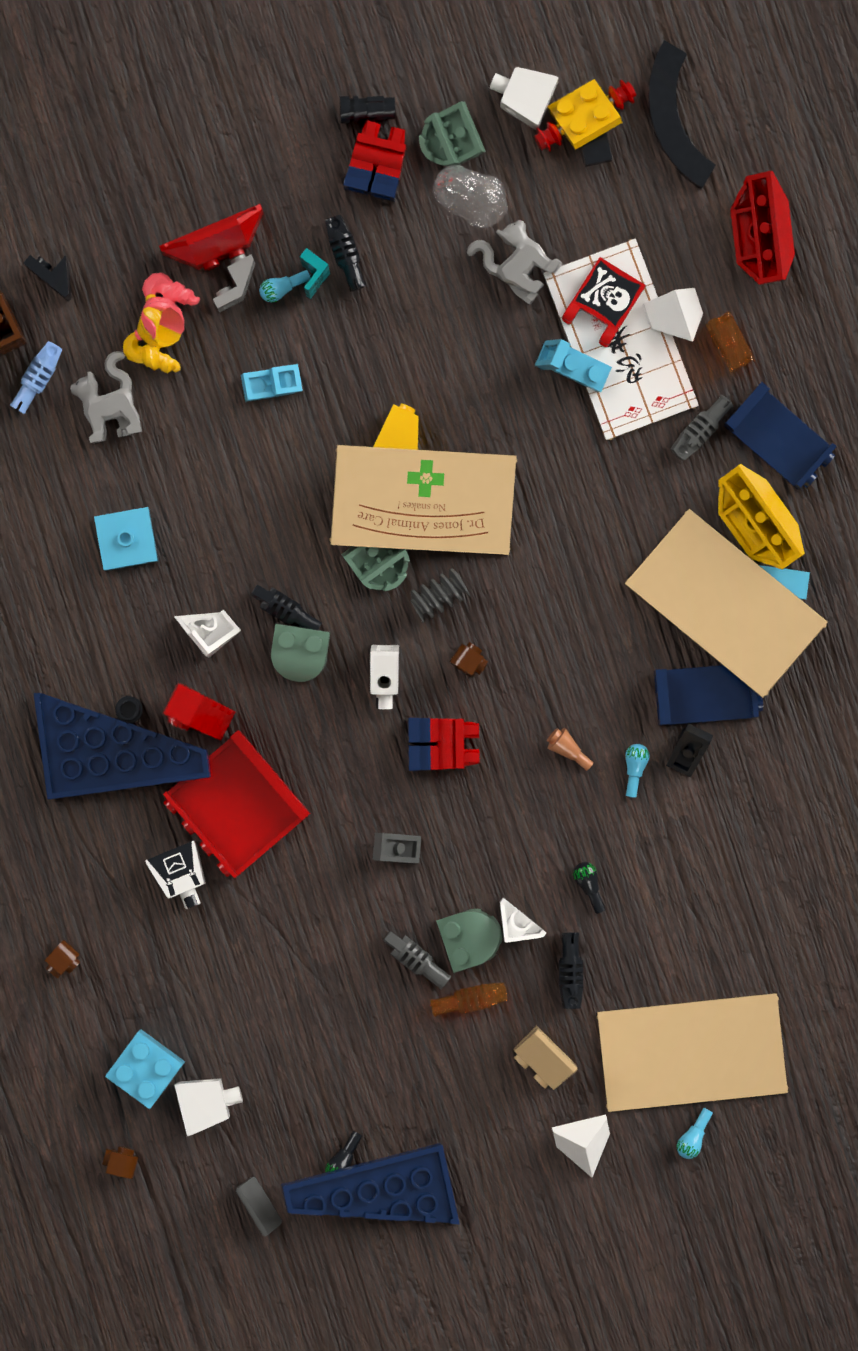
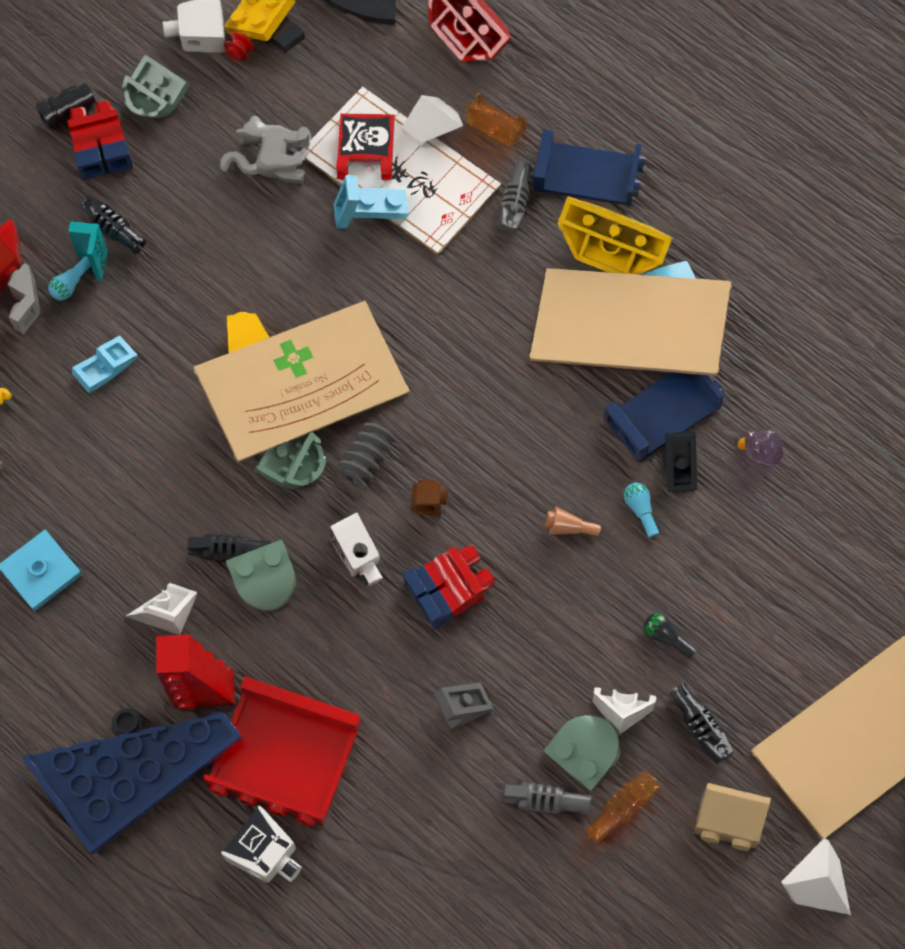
camera: 30 degrees left, 20 degrees down
(471, 195) = (196, 124): clear hair -> none
(764, 776) = (762, 447): none -> clear purple animal

